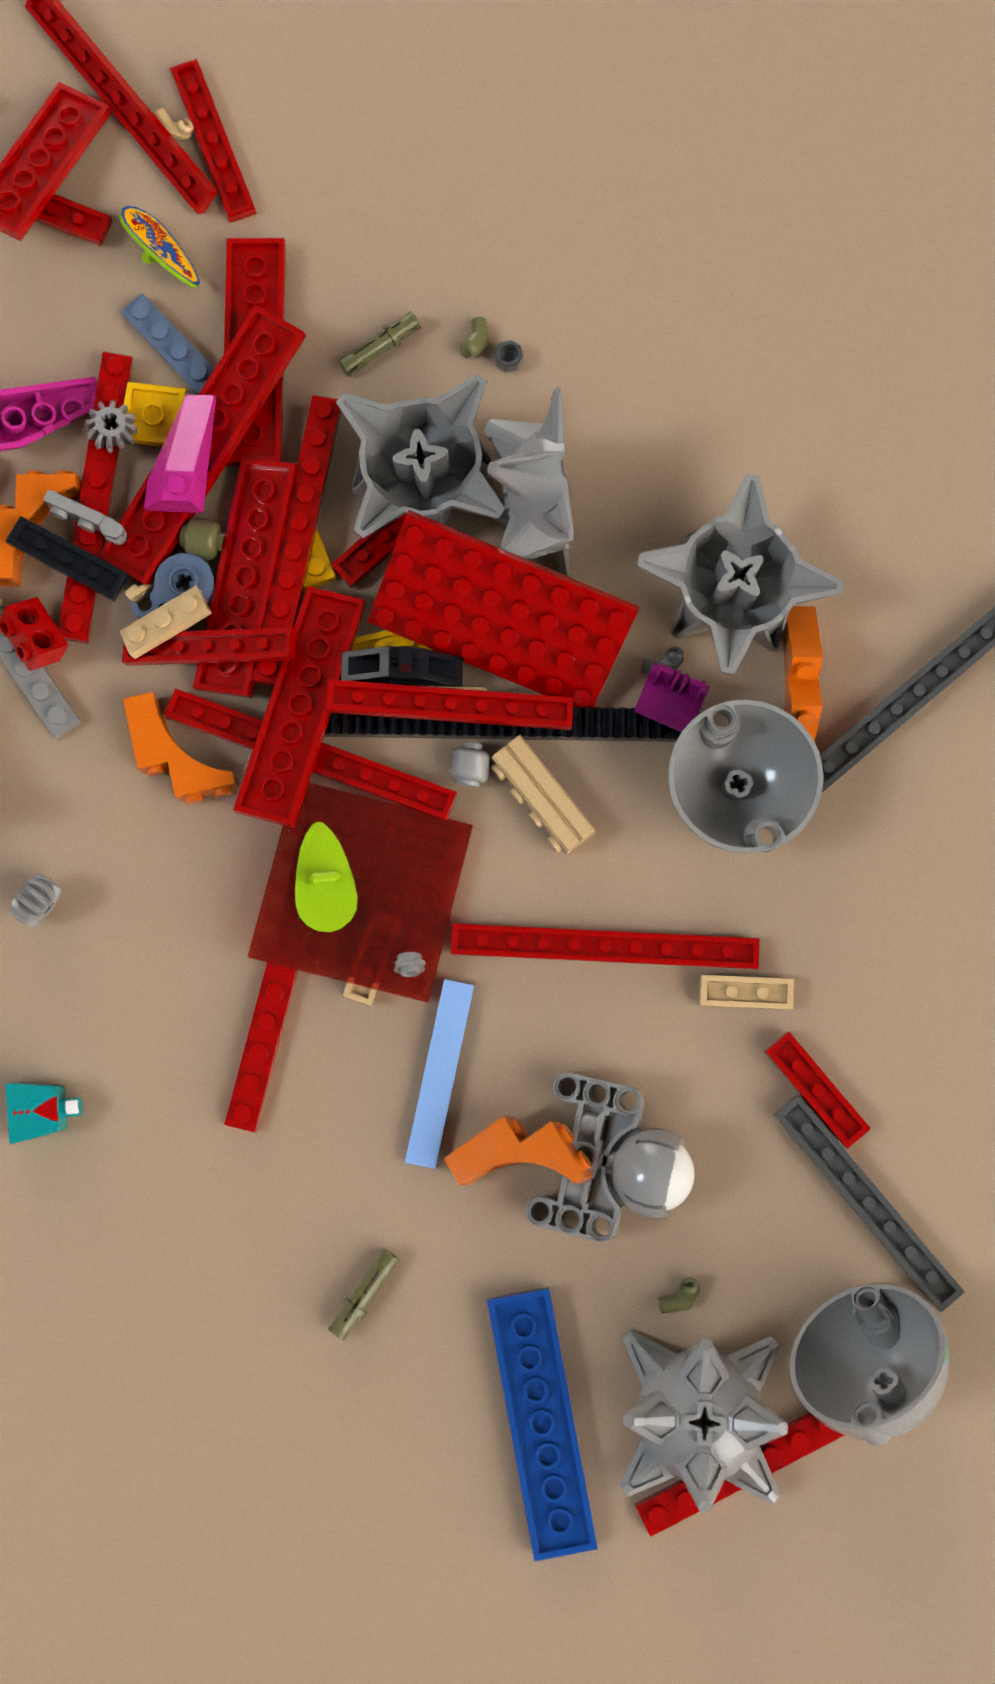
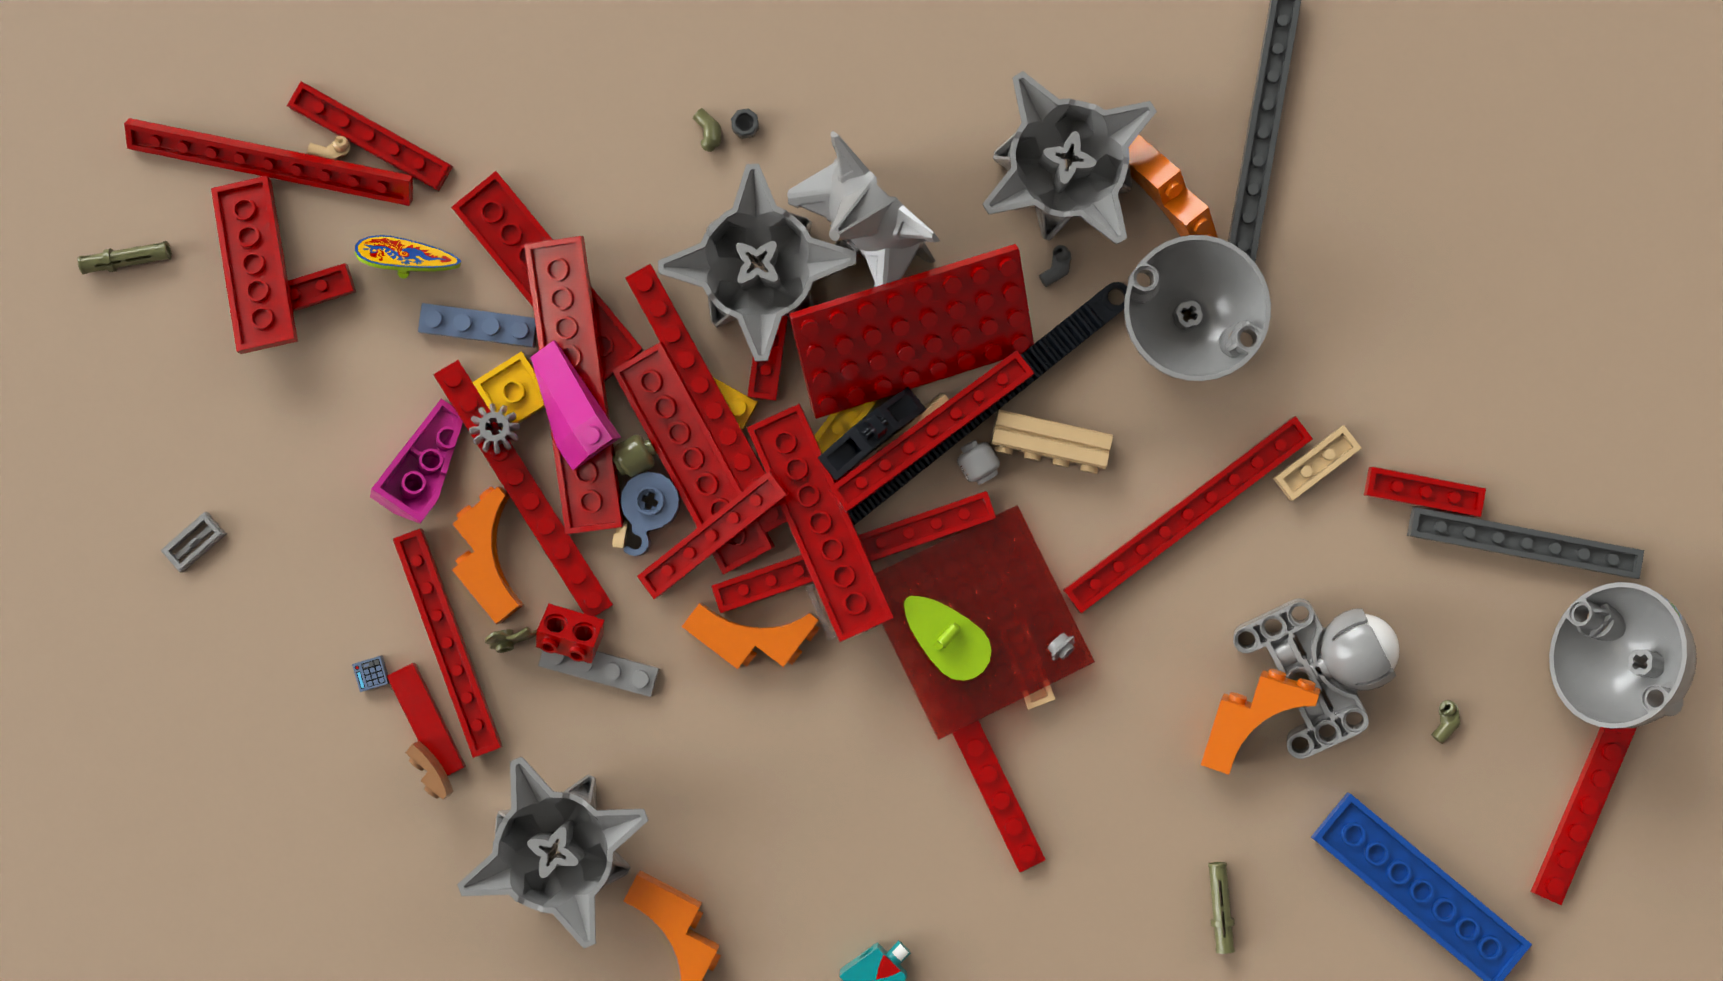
camera: 45 degrees left, 5 degrees up
(35, 900) = (745, 827): light grey gear -> none
(67, 558) = (548, 556): black plate -> none
(86, 517) = (539, 514): light grey hinge -> none
(165, 622) = (664, 543): tan plate -> none
(373, 348) = (641, 185): olive pin -> none
(439, 1074) = (1143, 706): light blue tile -> none
(671, 697) = (1087, 289): magenta hinge -> none
(676, 1394) = (1503, 794): light grey piece -> none

